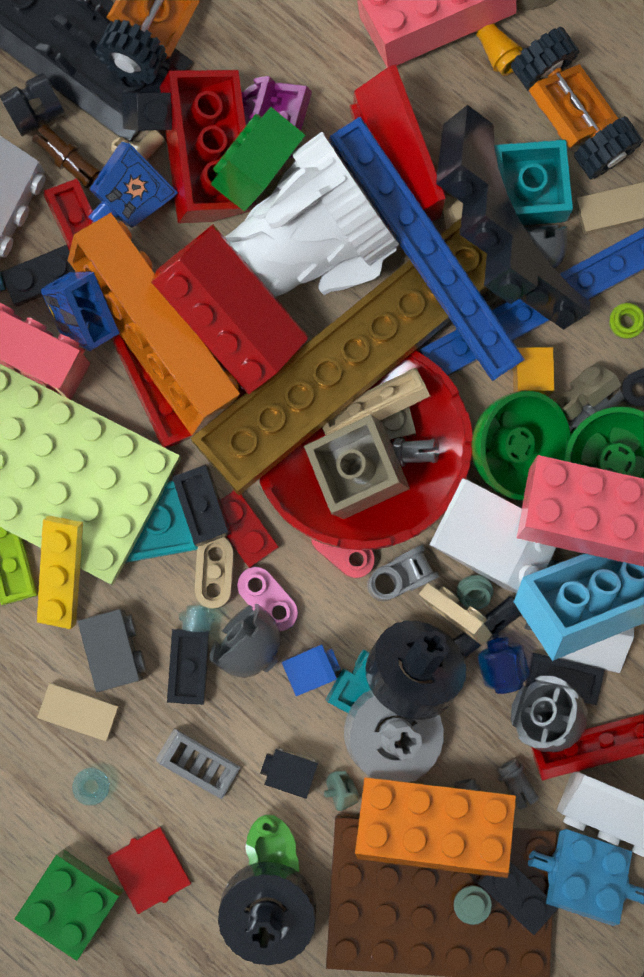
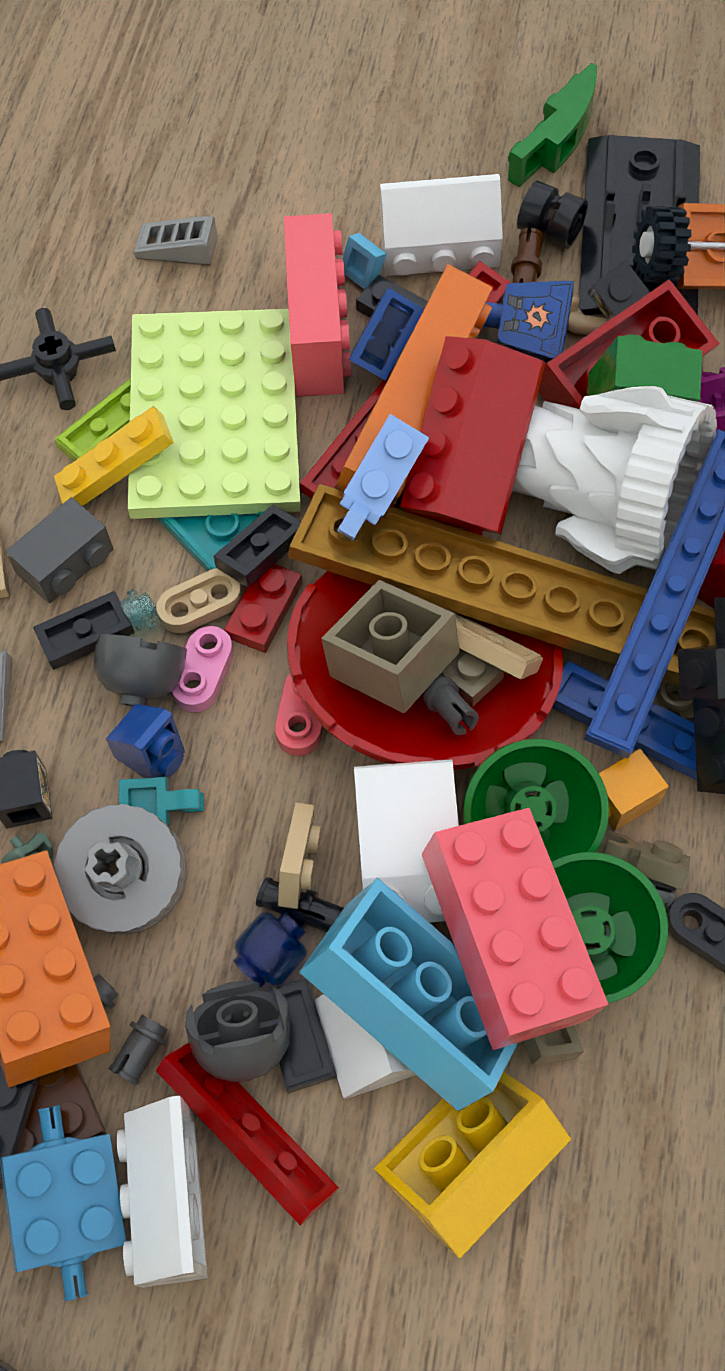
camera: 60 degrees right, 20 degrees down
(229, 397) = (380, 474): none -> light blue hinge
(403, 574) = (314, 783): light grey piece -> none
(424, 656) = (229, 842): black piece -> none
(480, 597) = (328, 873): sand green plate -> none

